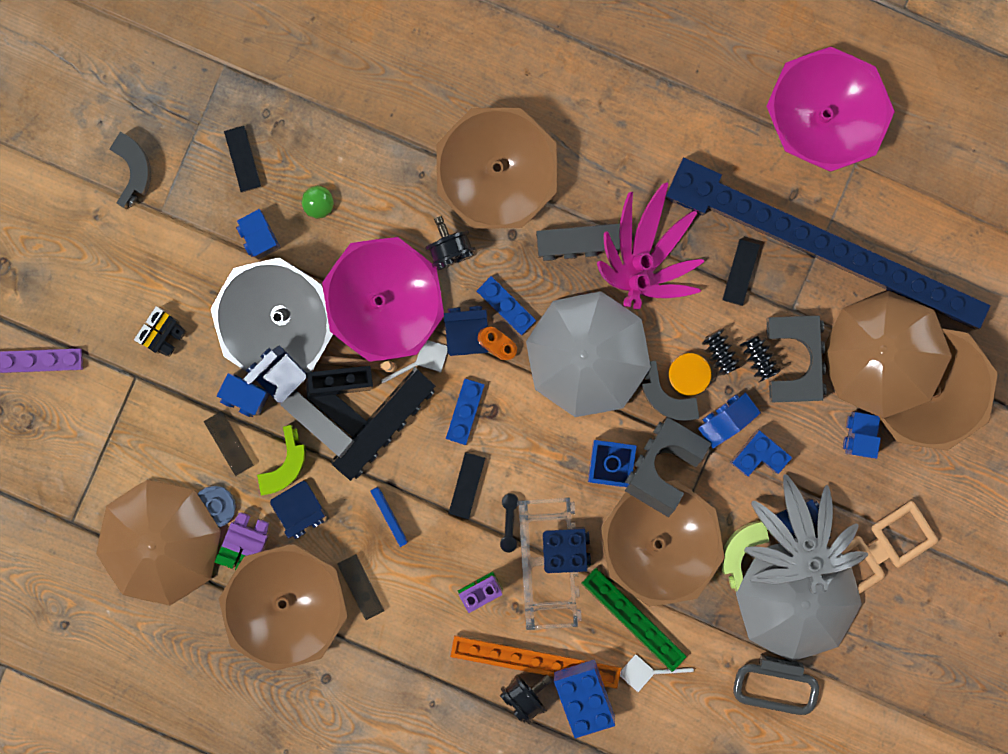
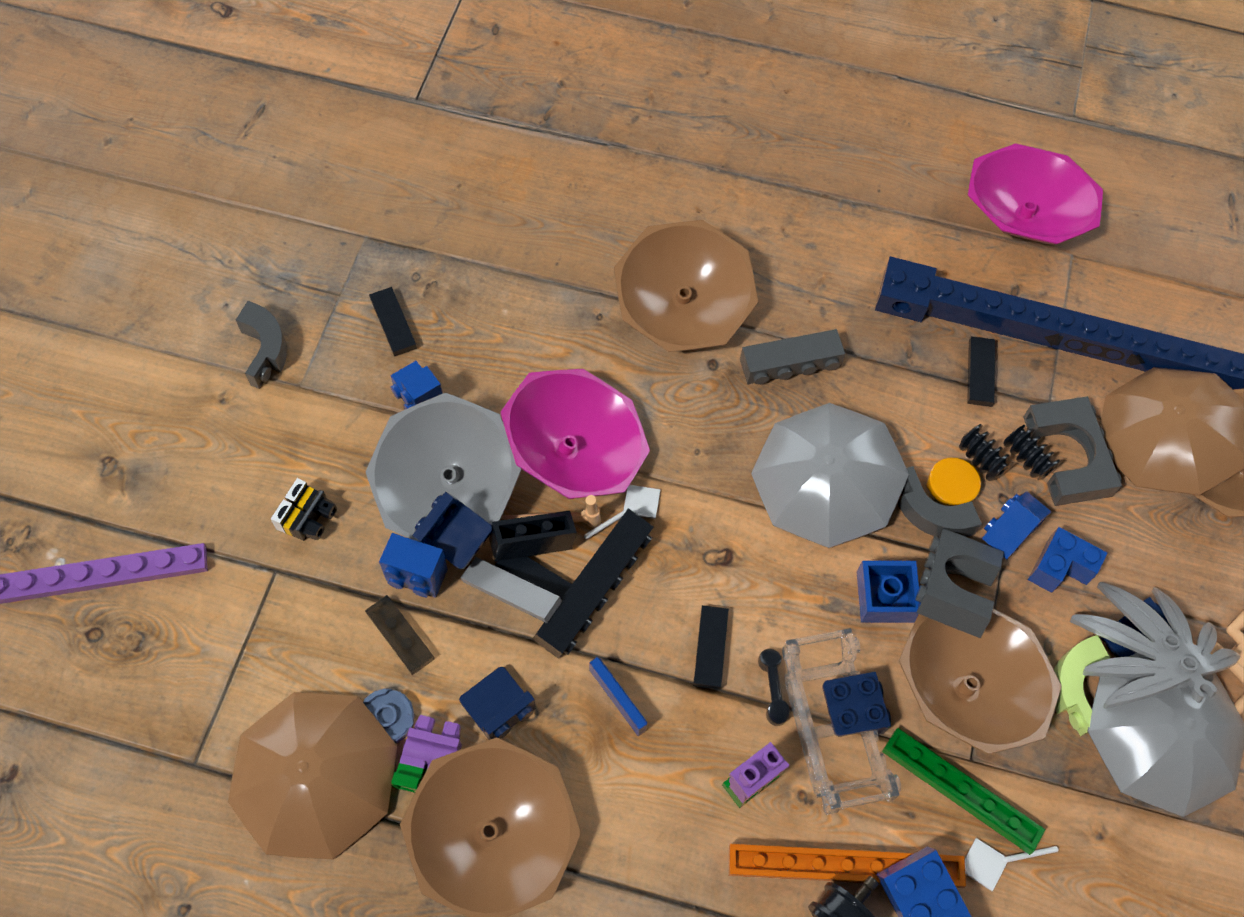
camera: 10 degrees left, 25 degrees down
(290, 469) = (473, 664): lime arch -> none
(317, 202) = (483, 353): bright green hair -> none
(361, 587) = (593, 797): clear smoke tile -> none
(449, 247) = (645, 374): black wheel -> none
(463, 330) = (679, 464): dark blue bracket -> none
(465, 411) = (693, 560): blue plate -> none
(498, 343) = (718, 475): orange plate -> none
(506, 305) = (720, 436): blue plate -> none
(638, 265) = (863, 371): dark pink plant -> none
(777, 668) = (1175, 828): dark grey bar -> none
(862, 435) = (1181, 524): blue brick -> none

